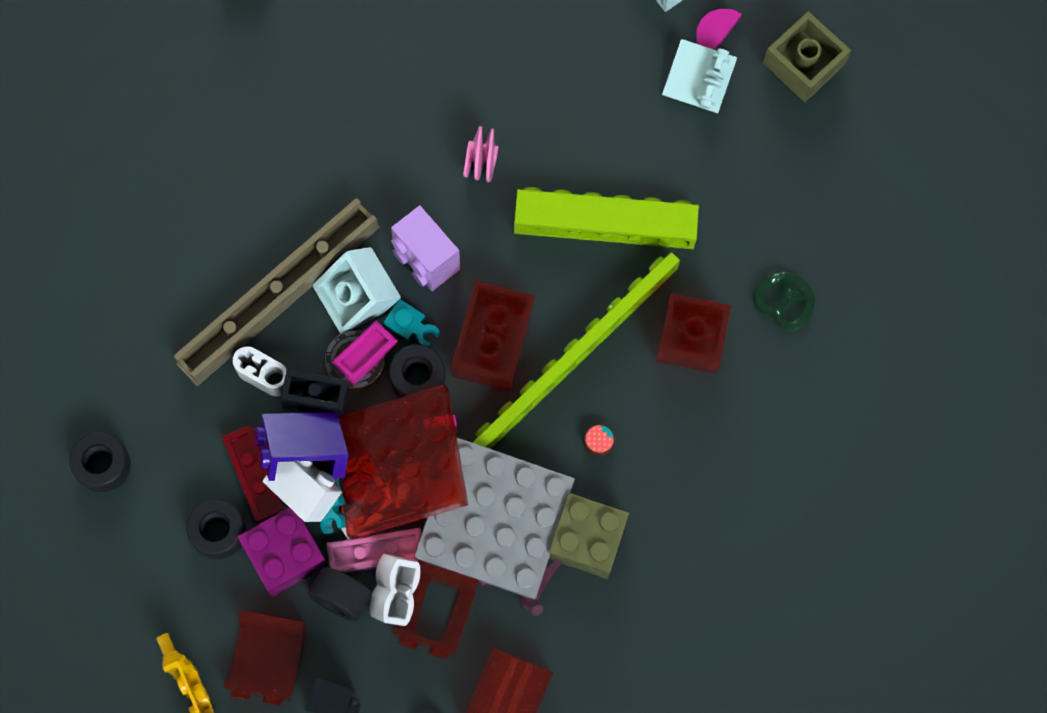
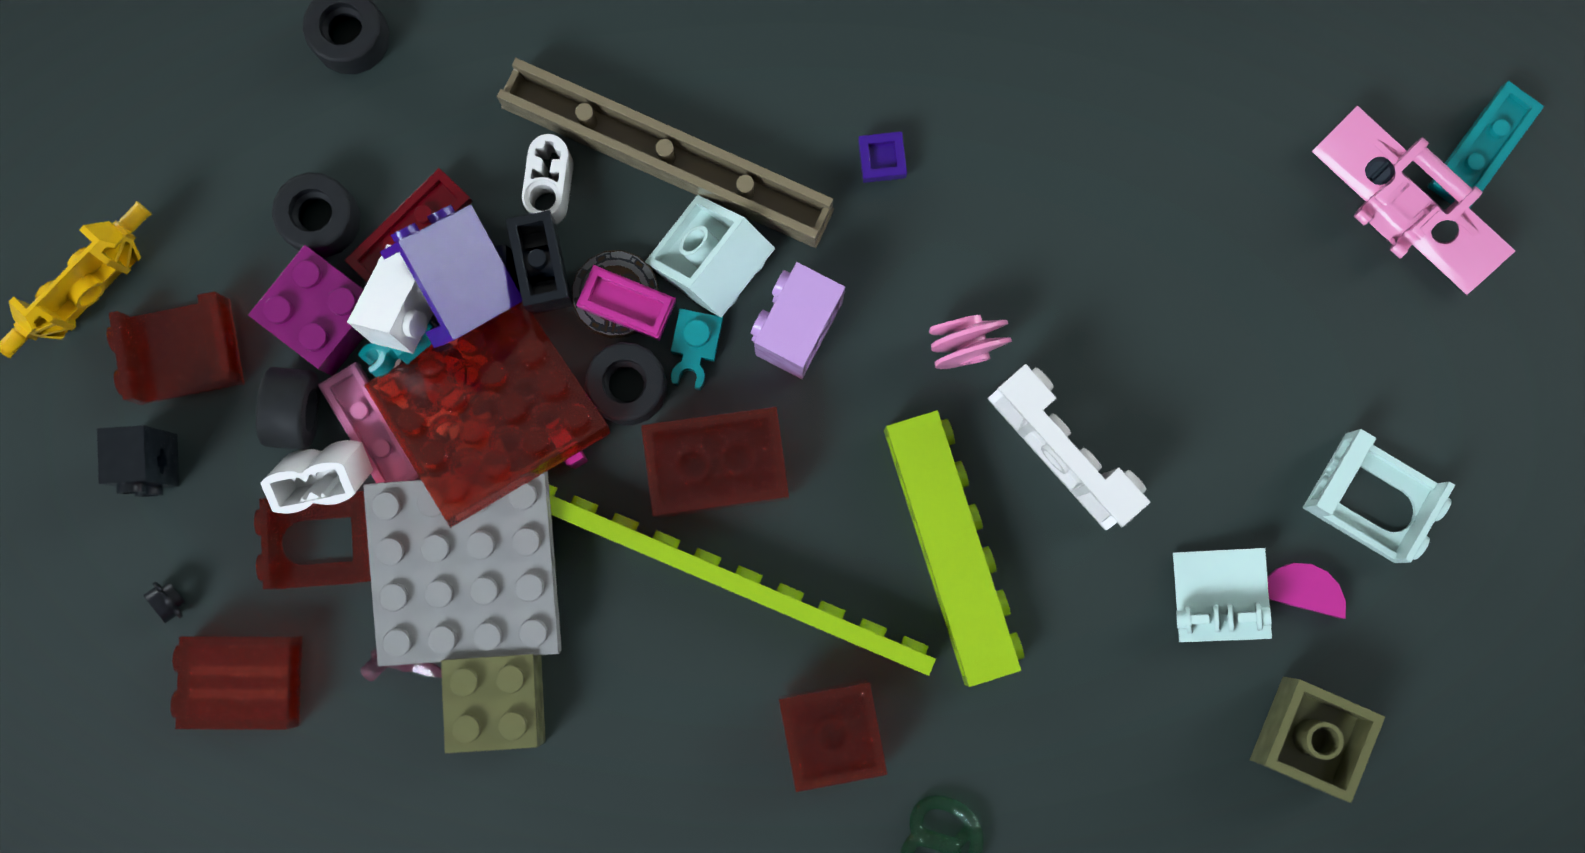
camera: 70 degrees right, 10 degrees up
(340, 162) = (882, 157): none -> dark purple plate
(537, 138) = (1106, 496): none -> white piece
(599, 440) = (637, 662): tile -> none

